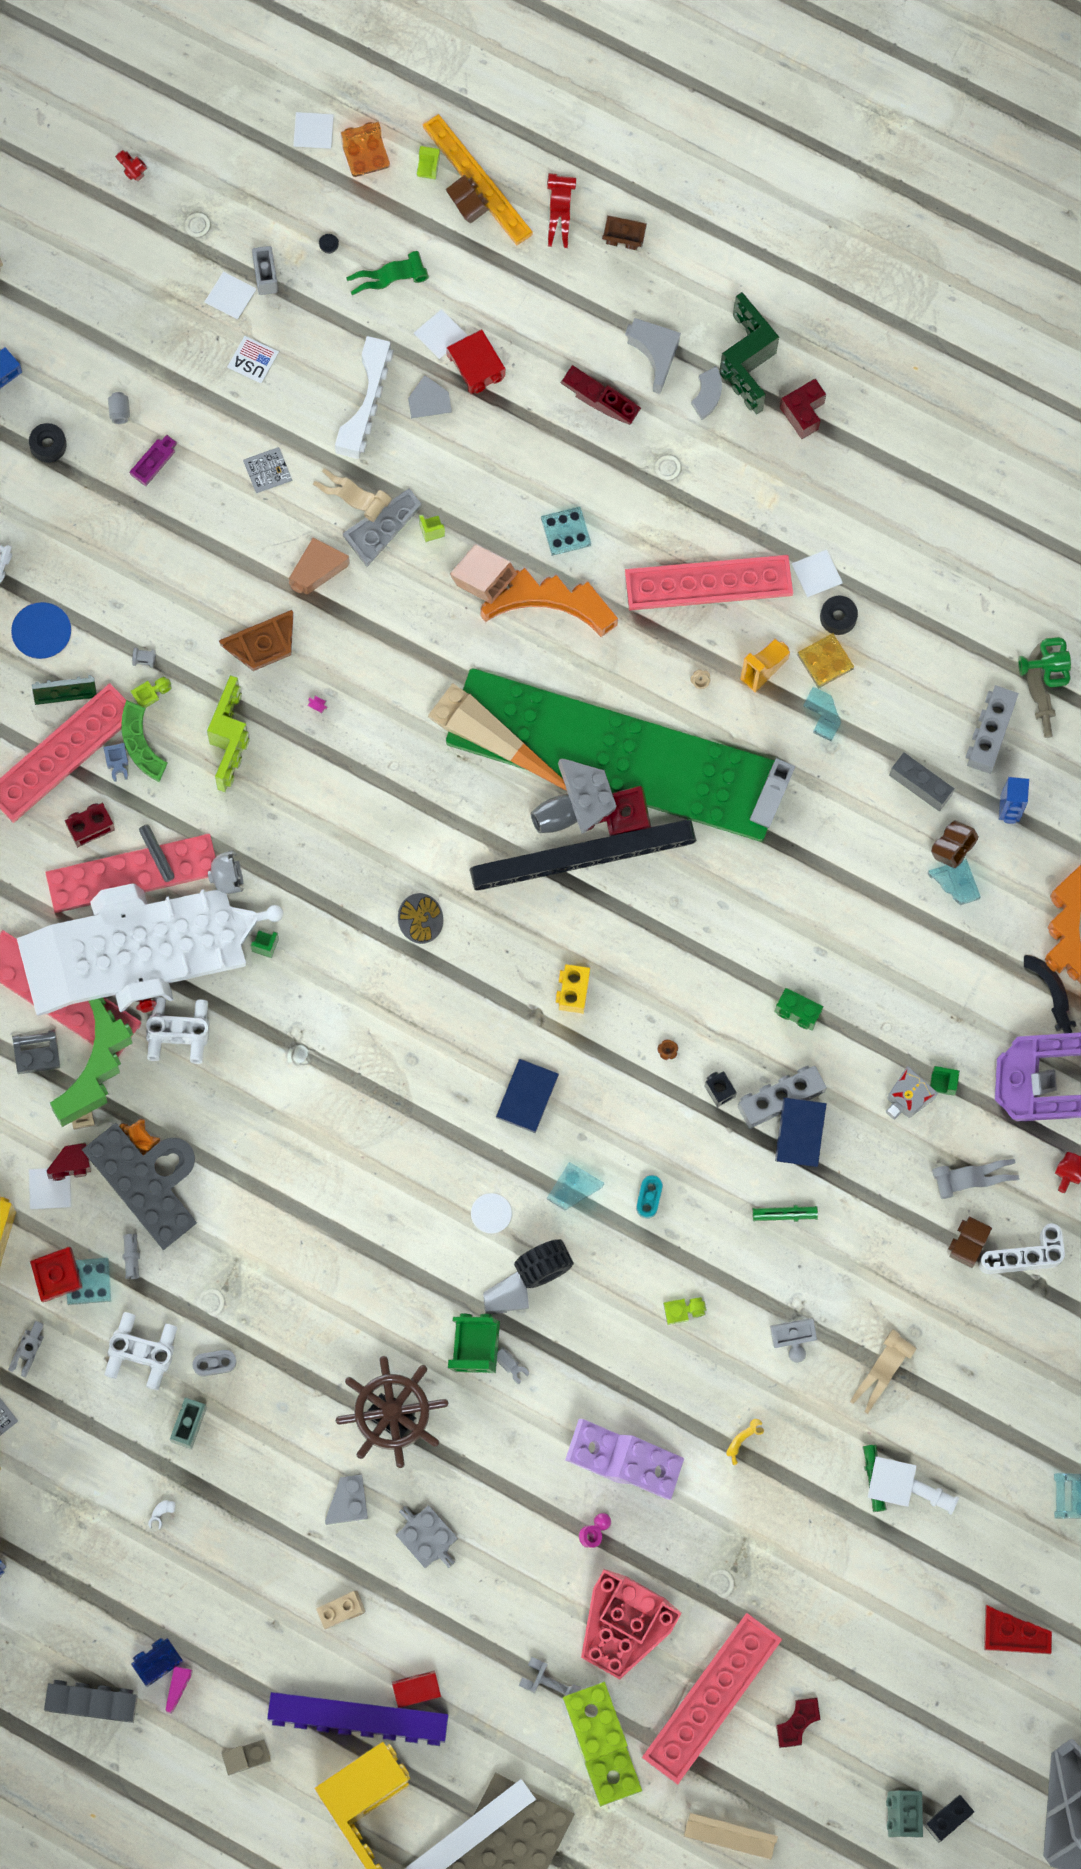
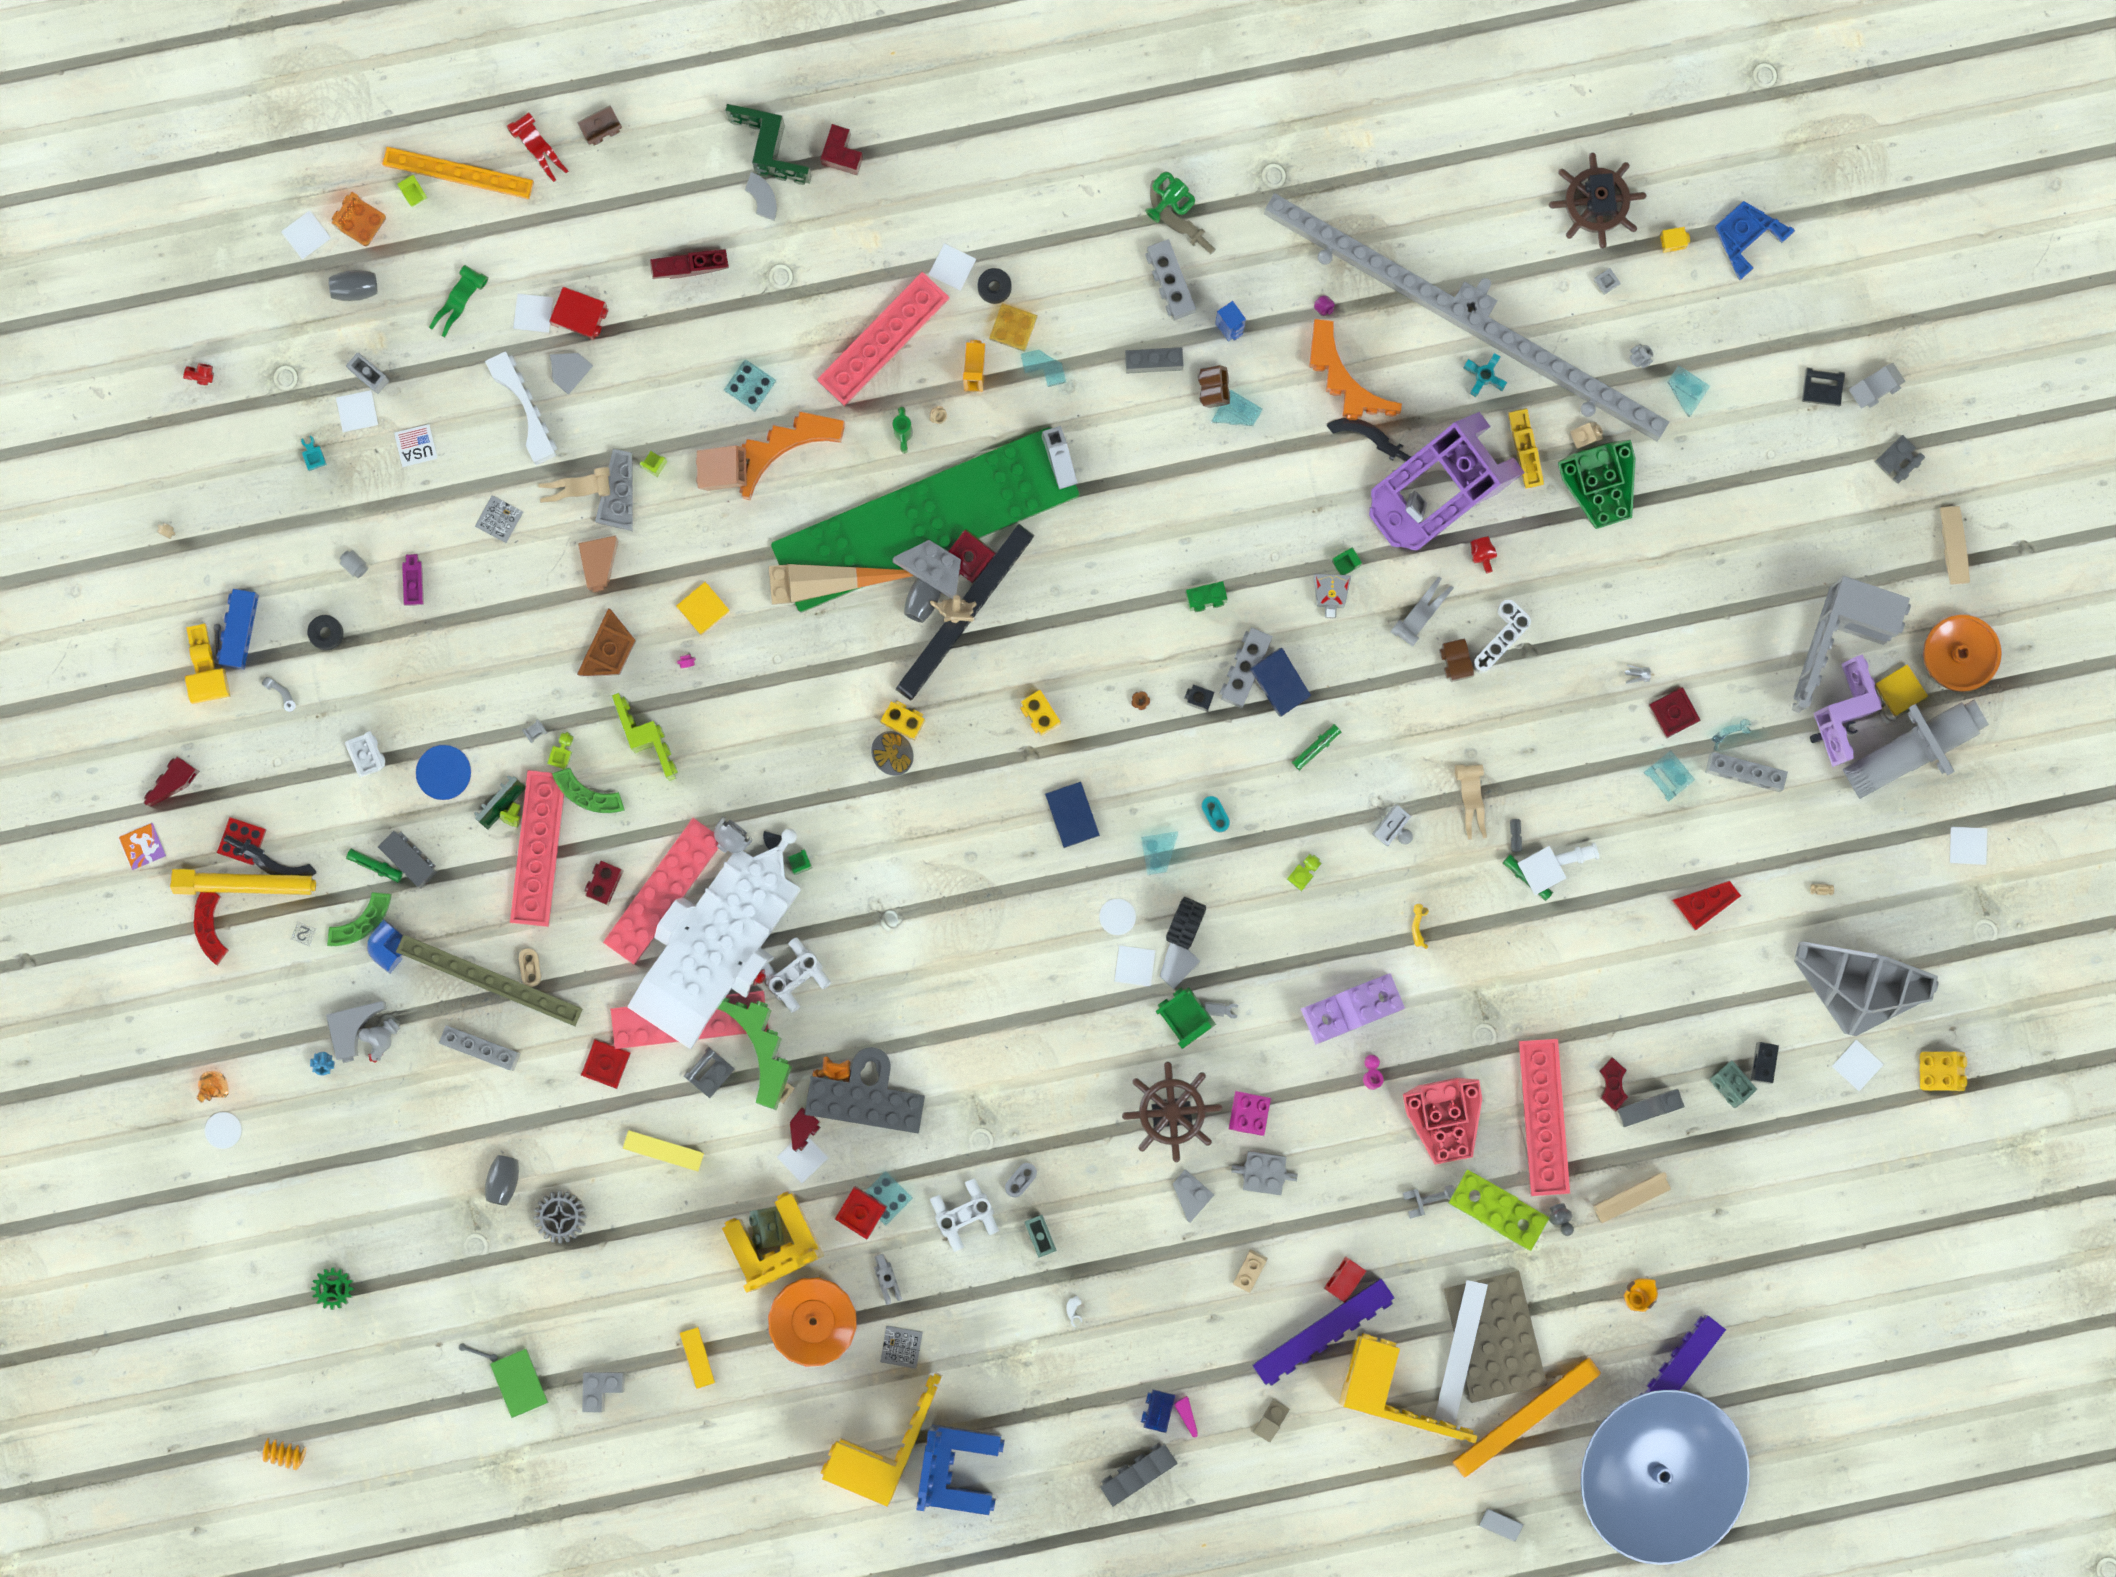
camera: 35 degrees left, 10 degrees up
(63, 708) = (510, 817): none -> lime brick
(116, 759) = (580, 819): sand blue plate -> none
(131, 1256) = (900, 1156): light grey pin -> none
(156, 853) = (670, 863): dark grey axle -> none
(164, 300) = (313, 456): none -> teal plate
(257, 904) = (771, 840): none -> black tile
(314, 195) = (353, 285): none -> dark grey piece
(329, 243) = (394, 312): black plate -> none
(369, 675) = (703, 608): none -> yellow tile
(449, 900) = (900, 724): none -> yellow brick
(458, 1473) = (1249, 1113): none -> dark pink plate
(467, 198) = (465, 195): reddish brown brick -> none
(470, 1266) = (1134, 966): none -> white sticker
(575, 841) = (955, 609): none -> tan piece
(653, 1798) = (1562, 1216): none -> dark grey animal
(657, 345) = (696, 191): light grey arch -> none
(660, 666) = (902, 429): none -> green piece
(813, 1770) = (1651, 1107): none -> dark grey arch
(897, 1430) = (1516, 839): none -> dark grey piece

